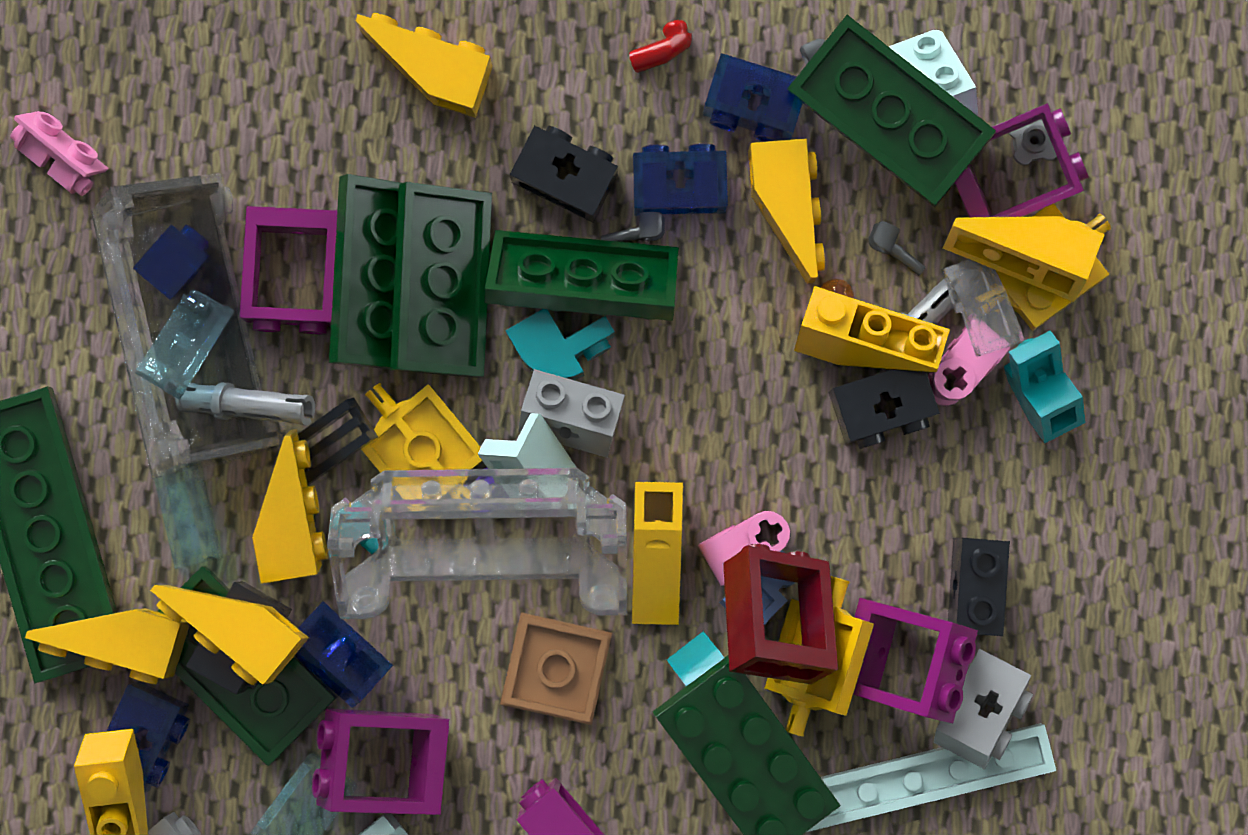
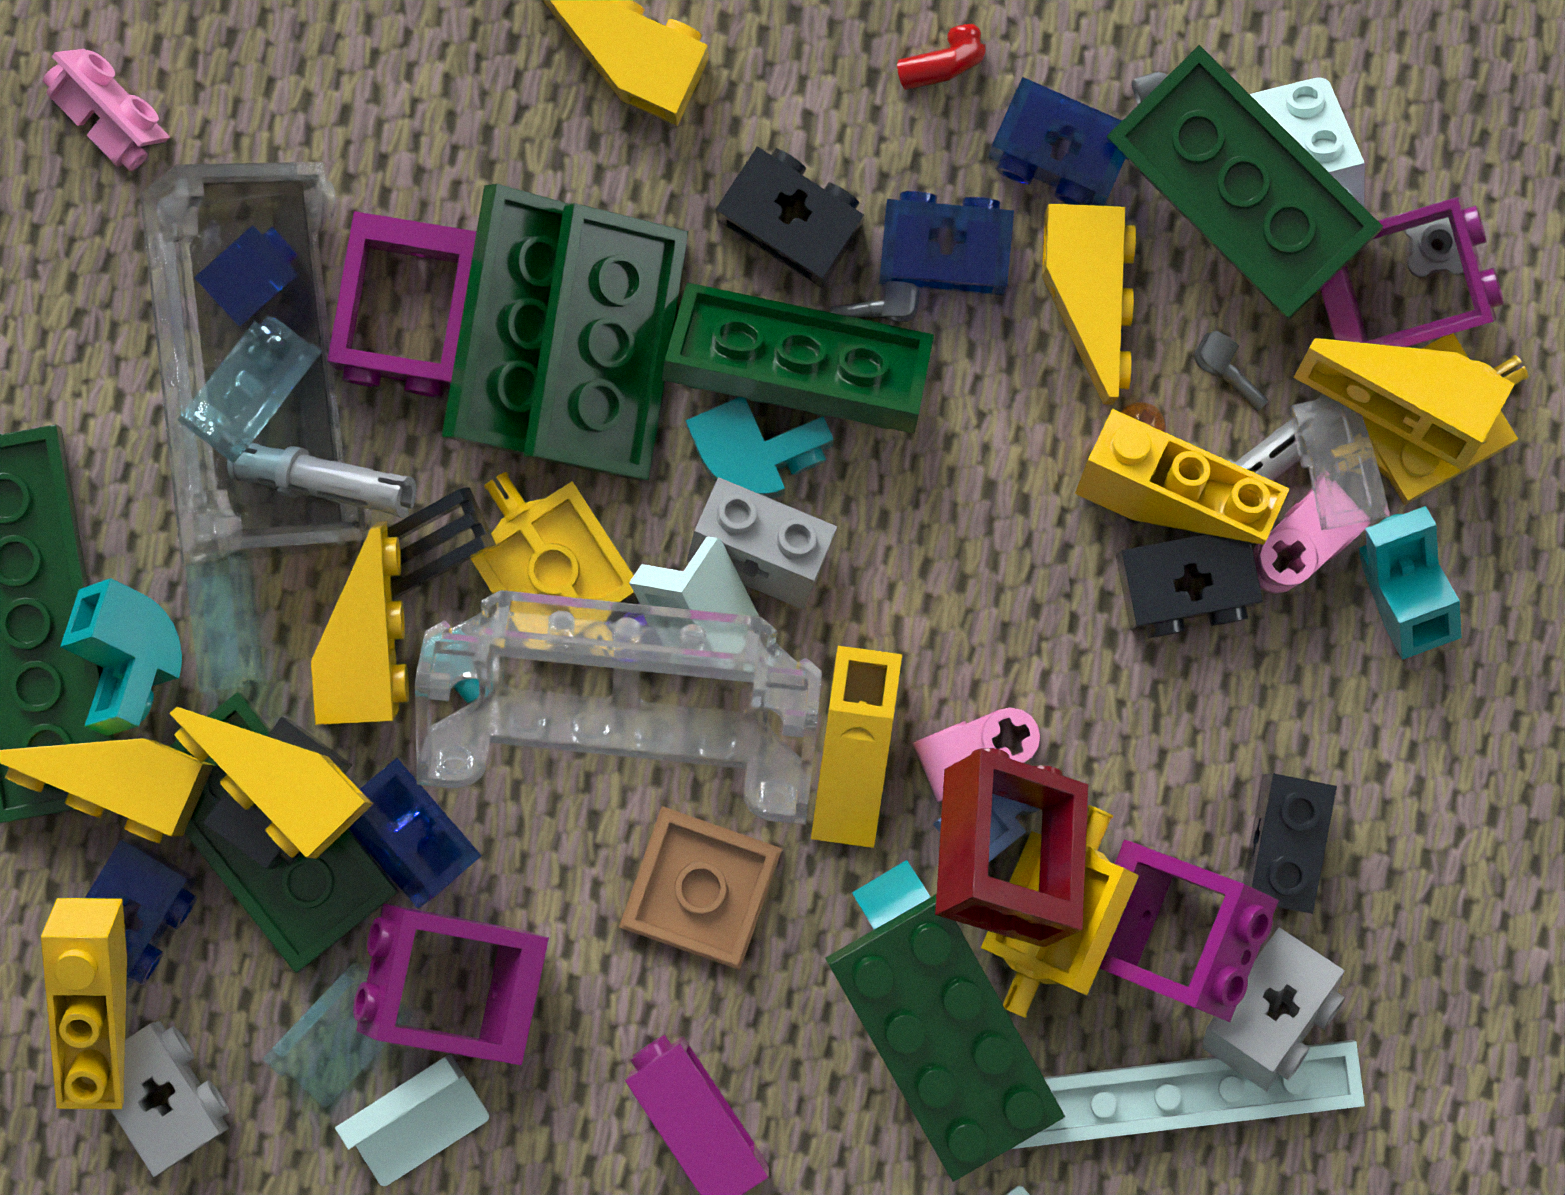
camera: 10 degrees right, 0 degrees up
(122, 541) = (133, 645): none -> teal brick

